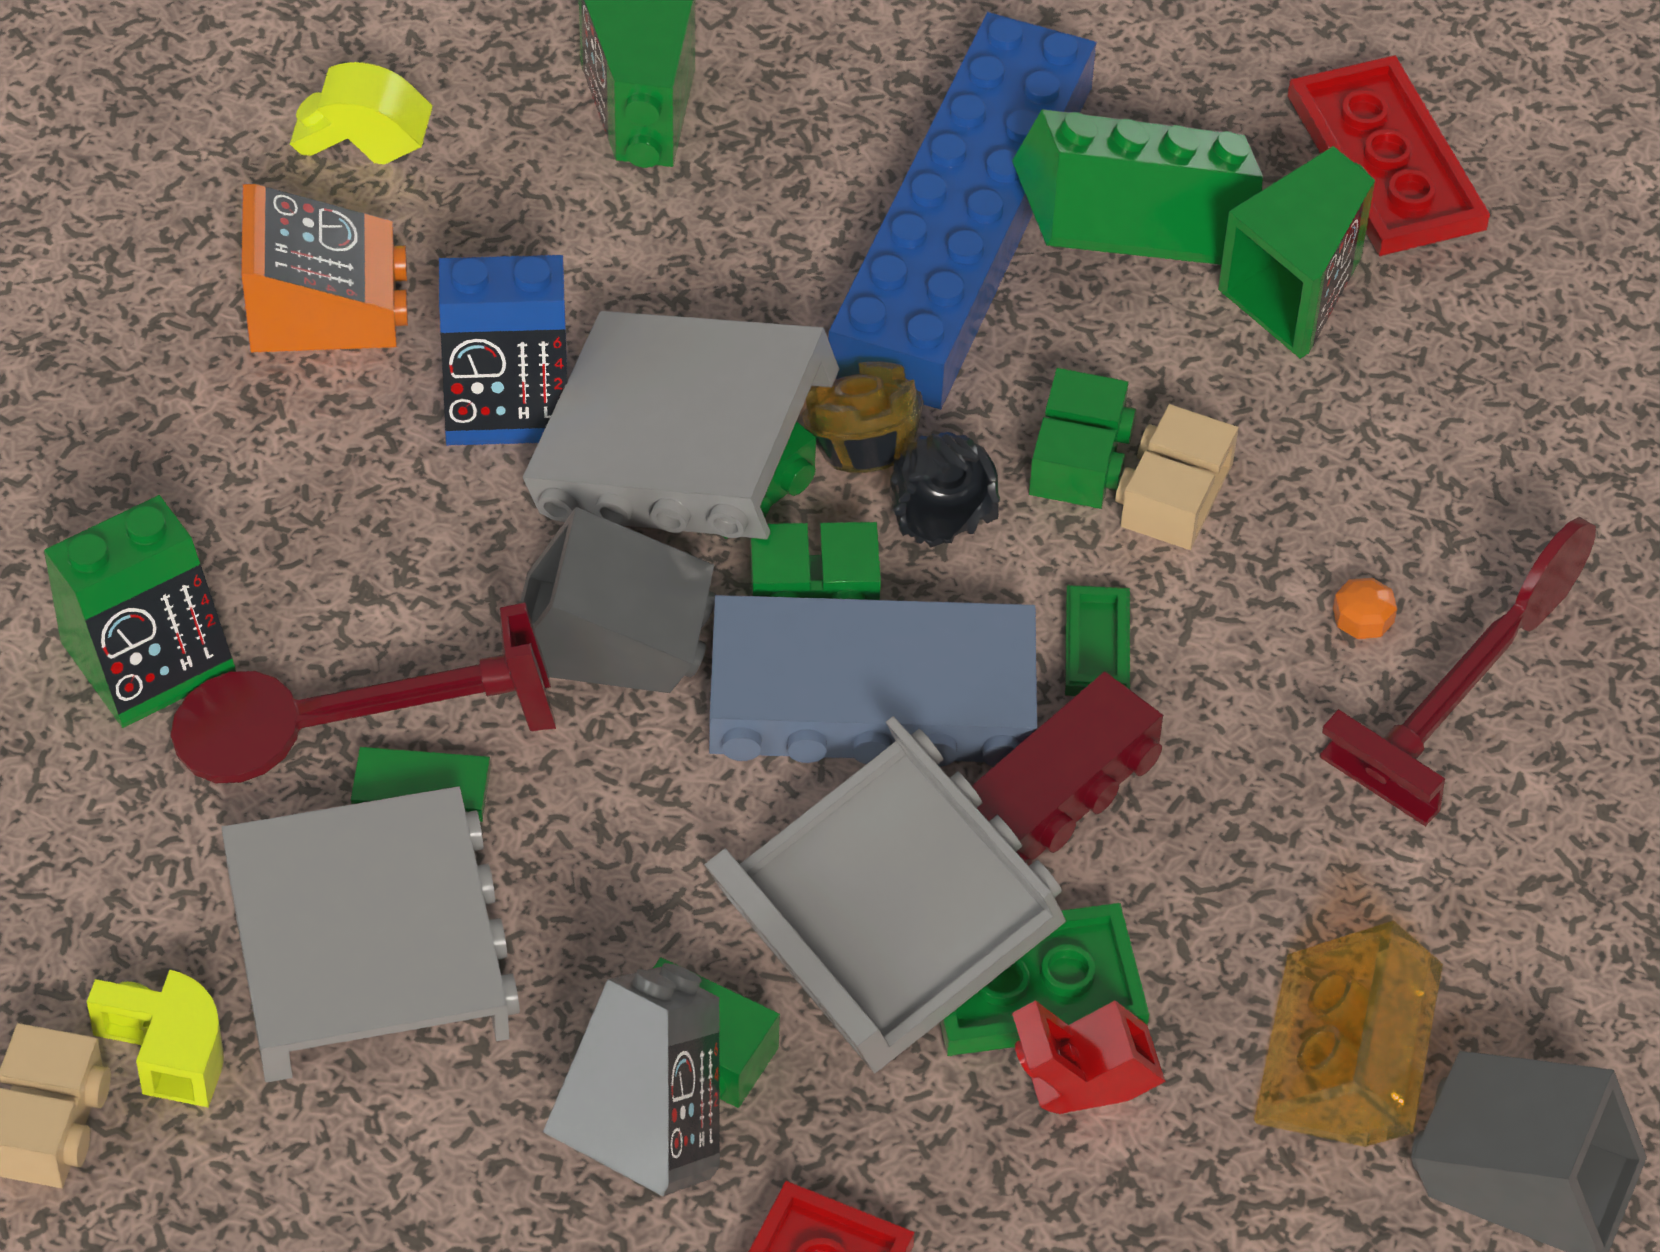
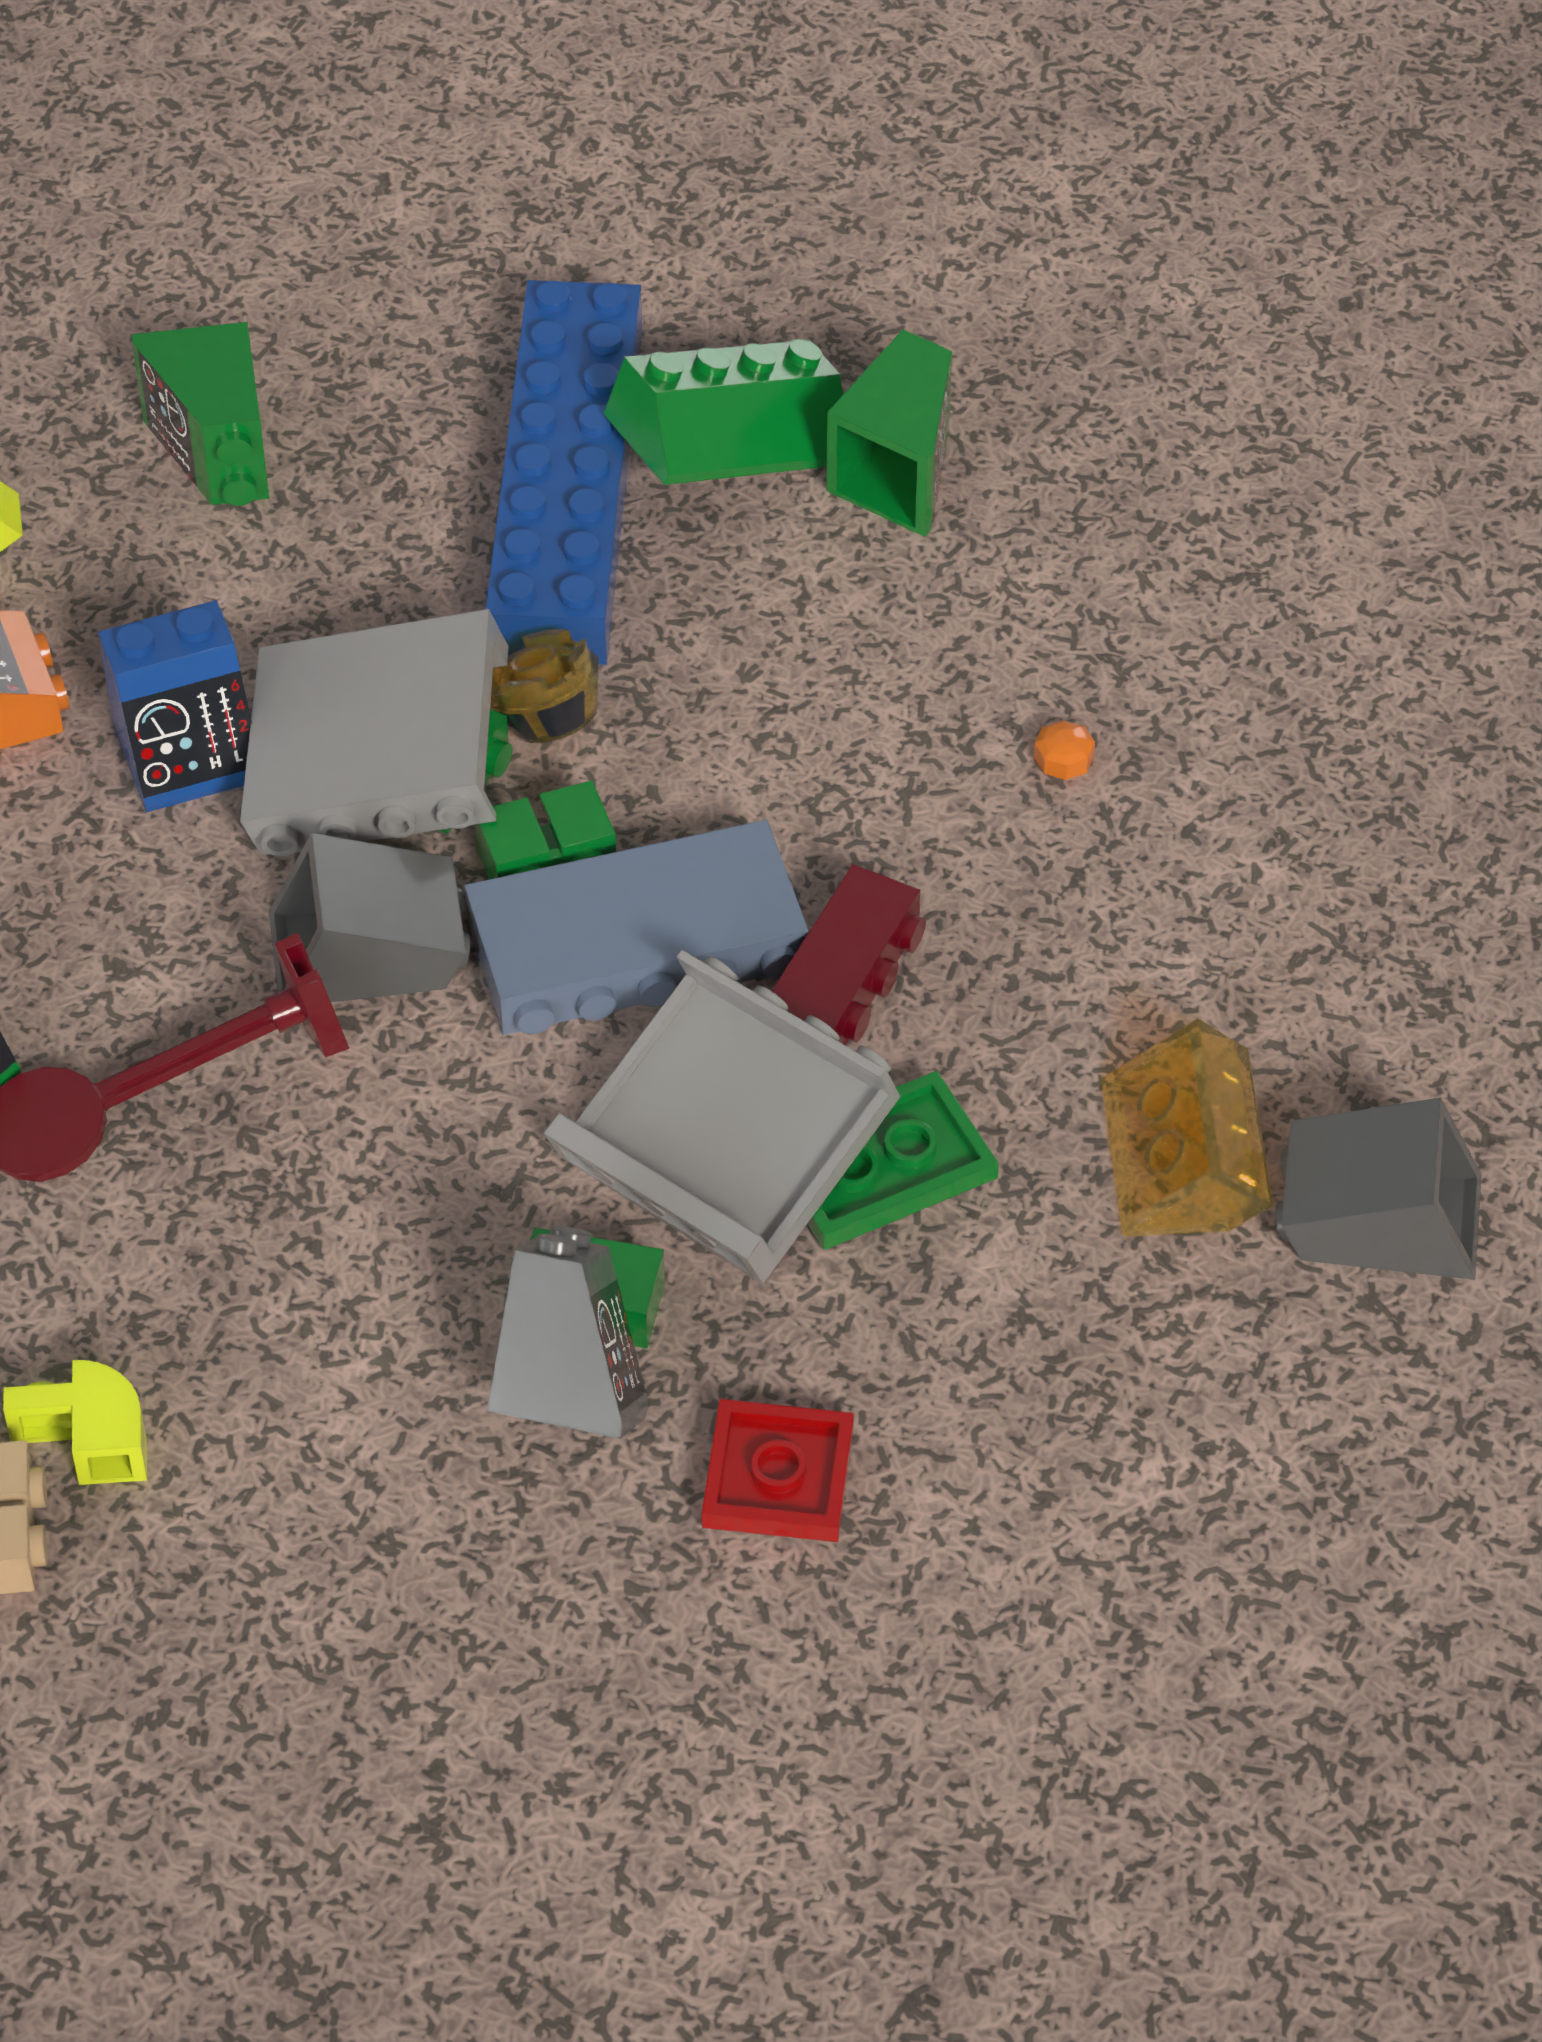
camera: 15 degrees left, 0 degrees up
(366, 923) = (238, 1271): light grey panel -> none
(404, 772) = (241, 1131): green tile -> none
(943, 488) = (641, 734): black hair -> none
(1080, 439) = (751, 658): green piece -> none
(1089, 1062) = (958, 1219): red brick -> none
(1096, 635) = (826, 836): green tile -> none
(1176, 476) = (853, 671): tan piece -> none
(1386, 128) = (928, 296): red plate -> none
(1390, 763) = (1137, 883): dark red piece -> none

